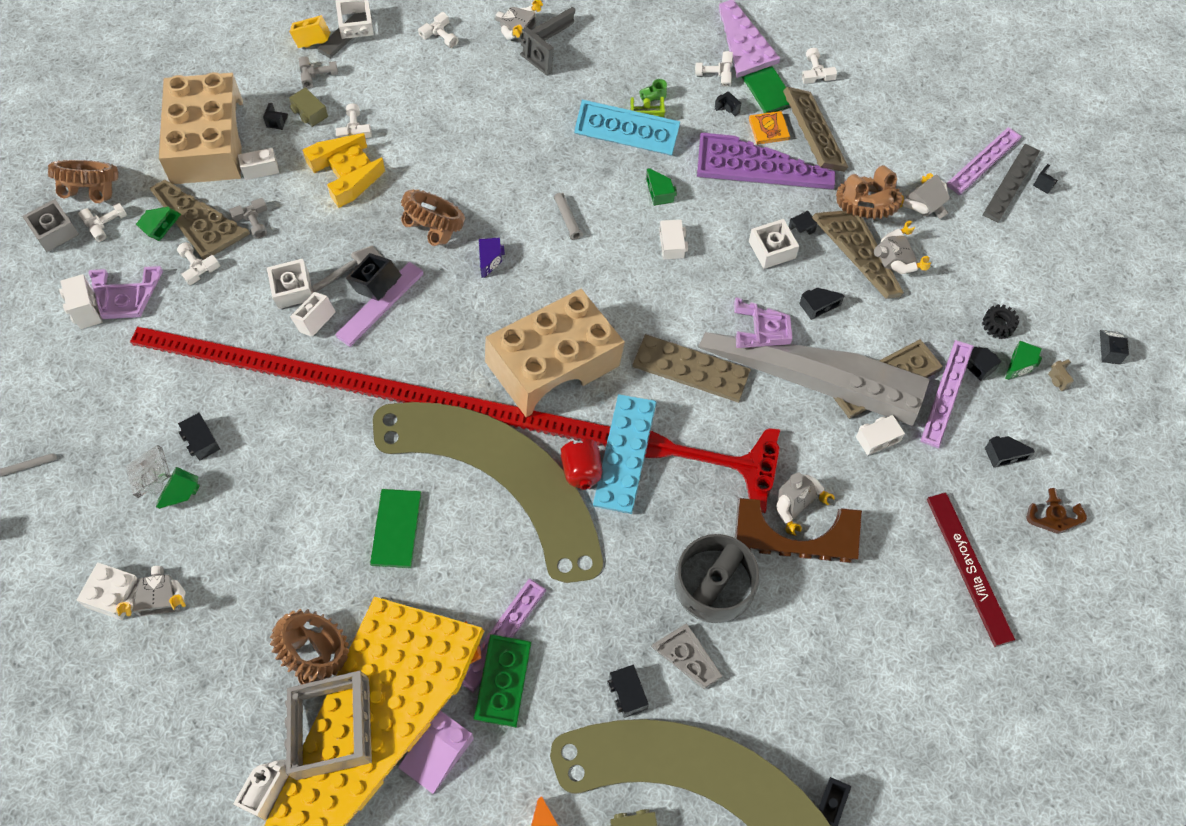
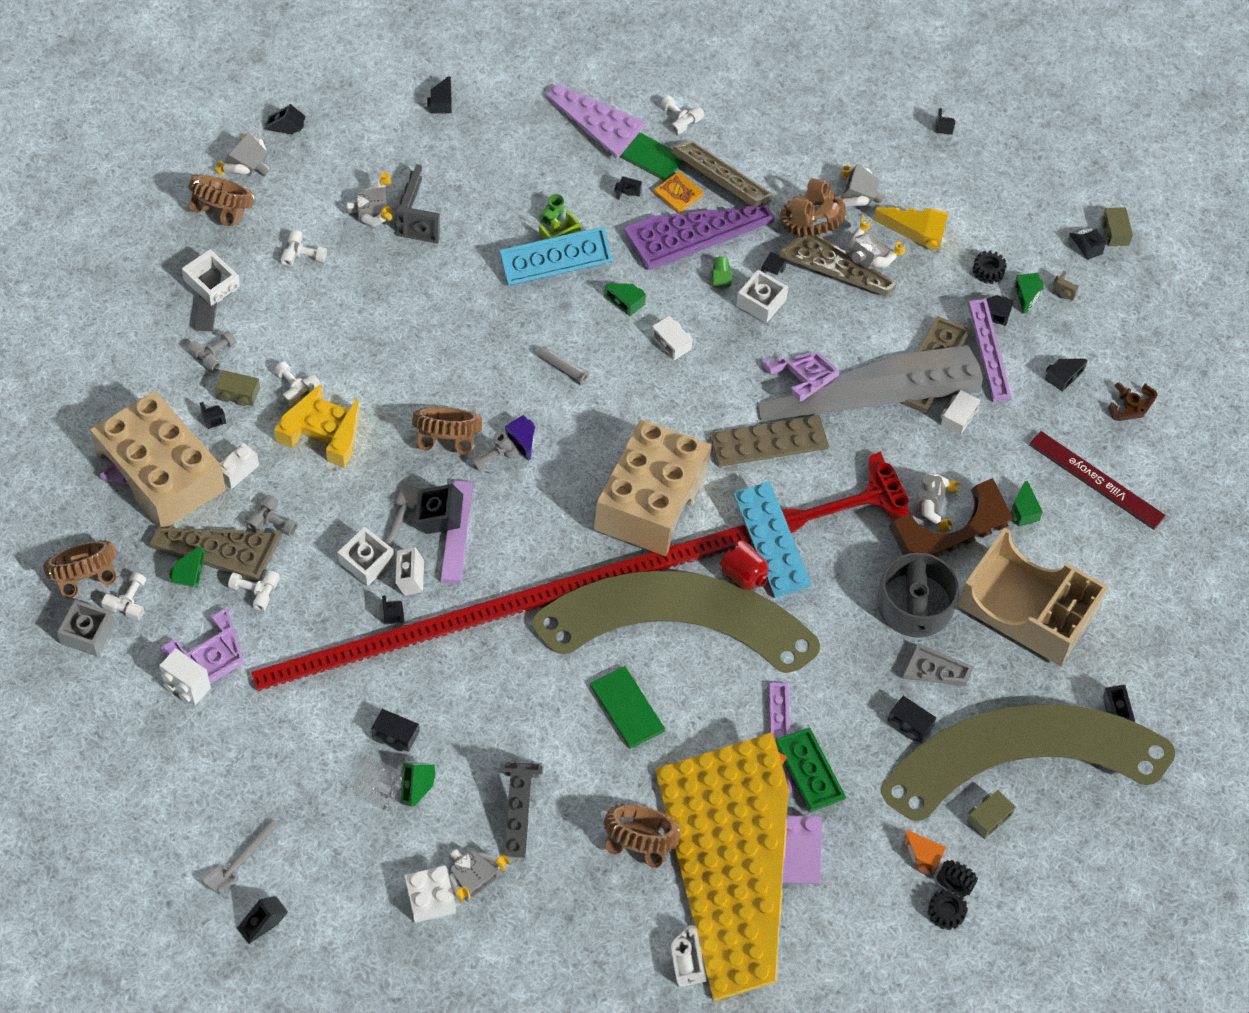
camera: 35 degrees left, 5 degrees down
(250, 529) = (518, 805): none -> dark grey bracket
(277, 338) = (392, 611): none -> black panel
(310, 32) = (179, 314): yellow brick -> none
(361, 725) = (680, 851): light grey window -> none
(462, 254) = (503, 445): none -> light grey bar
(723, 69) = (599, 157): white bar -> none
(755, 208) = (721, 274): none -> bright green piece
(818, 647) = (1032, 603): none -> tan piece
(820, 301) = (834, 327): black slope -> none
(880, 554) = (1026, 507): none -> green slope
(961, 256) = (919, 226): none -> yellow wedge
(983, 161) = (881, 130): lavender tile -> none
(1011, 183) = (917, 139): dark grey plate -> none
(1150, 346) = (1116, 226): none -> olive brick

